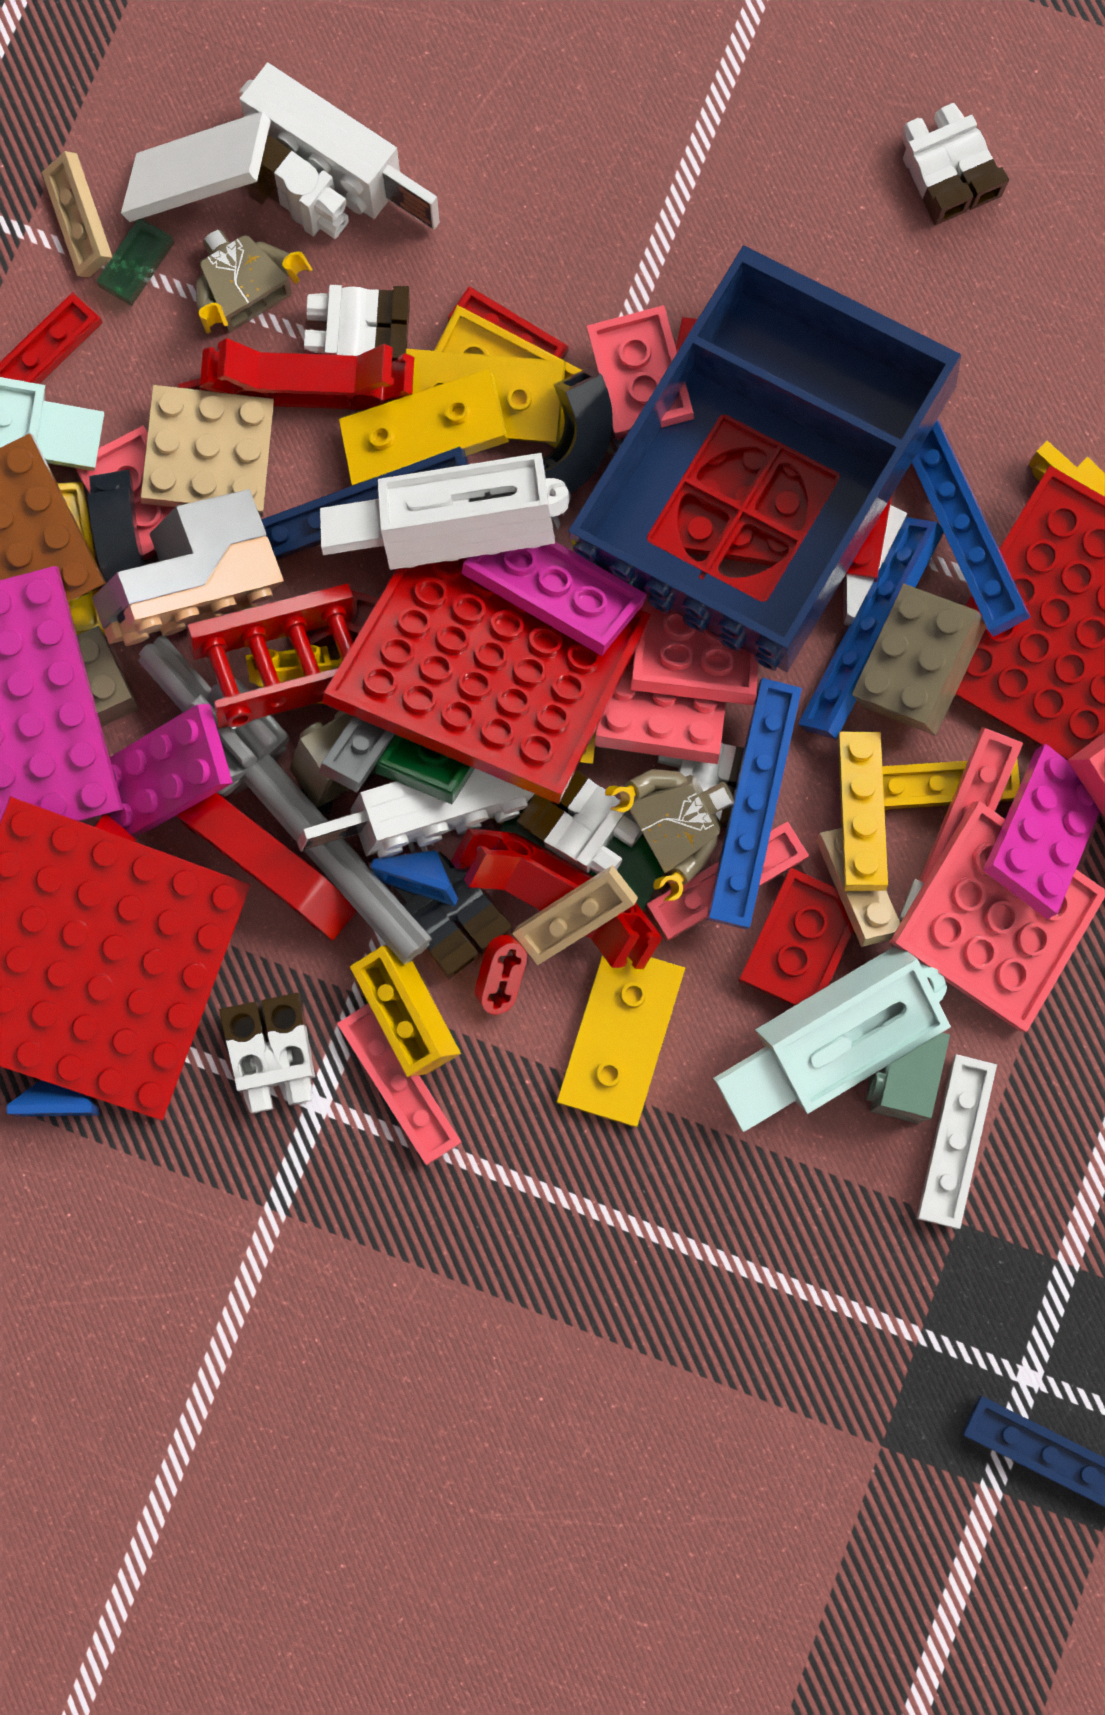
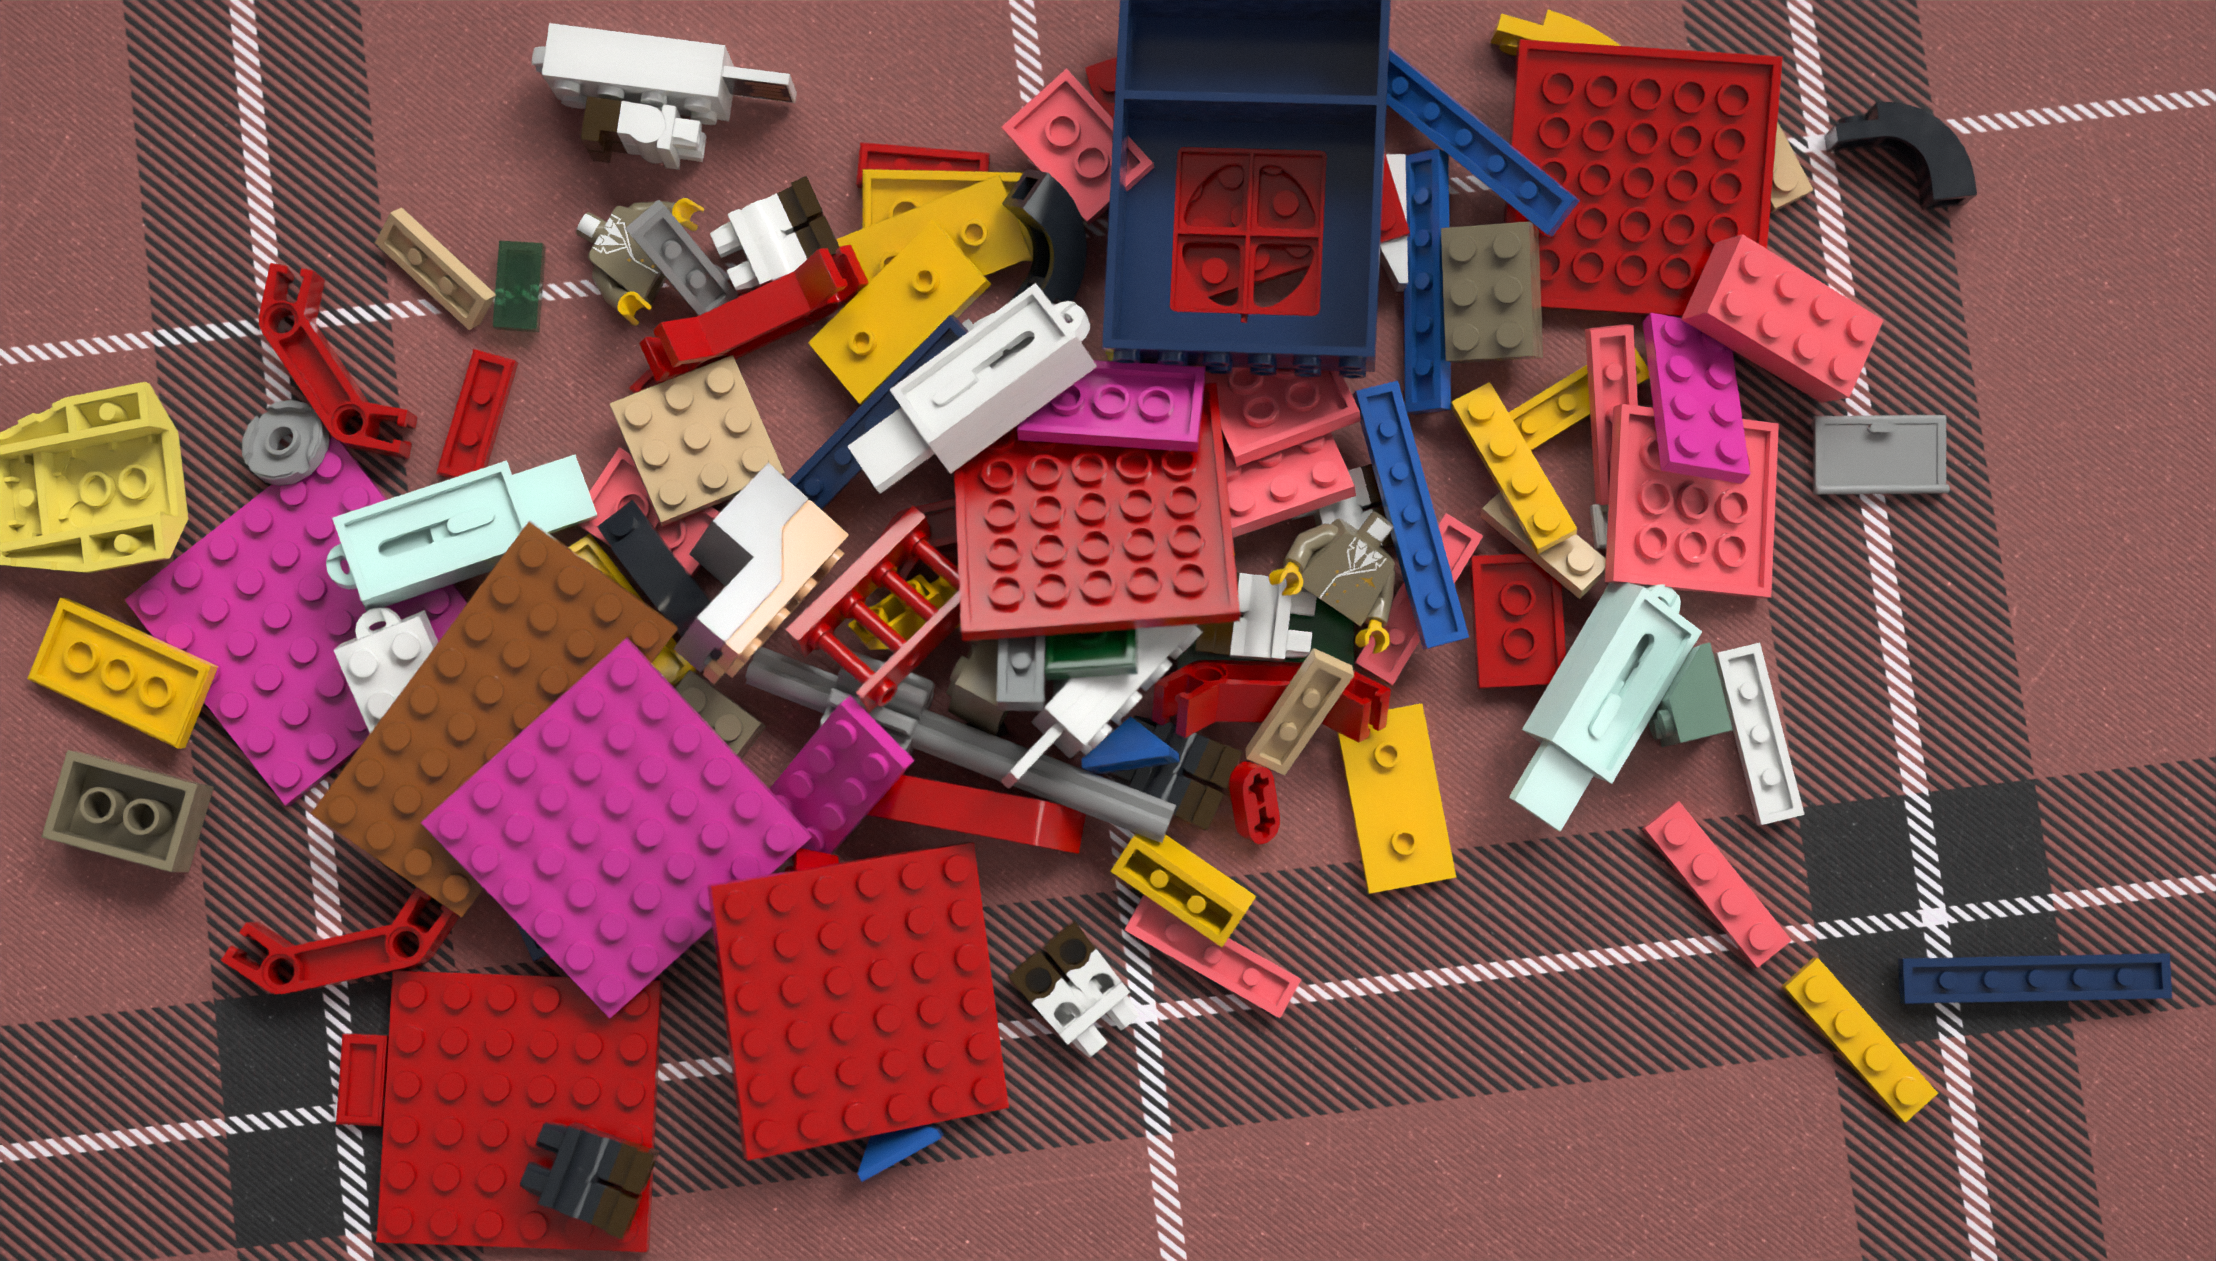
camera: 30 degrees left, 5 degrees up
(196, 166) = (533, 163): white tile -> none
(271, 298) = (680, 259): none -> light grey plate
(855, 1250) = (1716, 884): none -> coral plate
(909, 1447) = (1859, 1040): none -> yellow plate

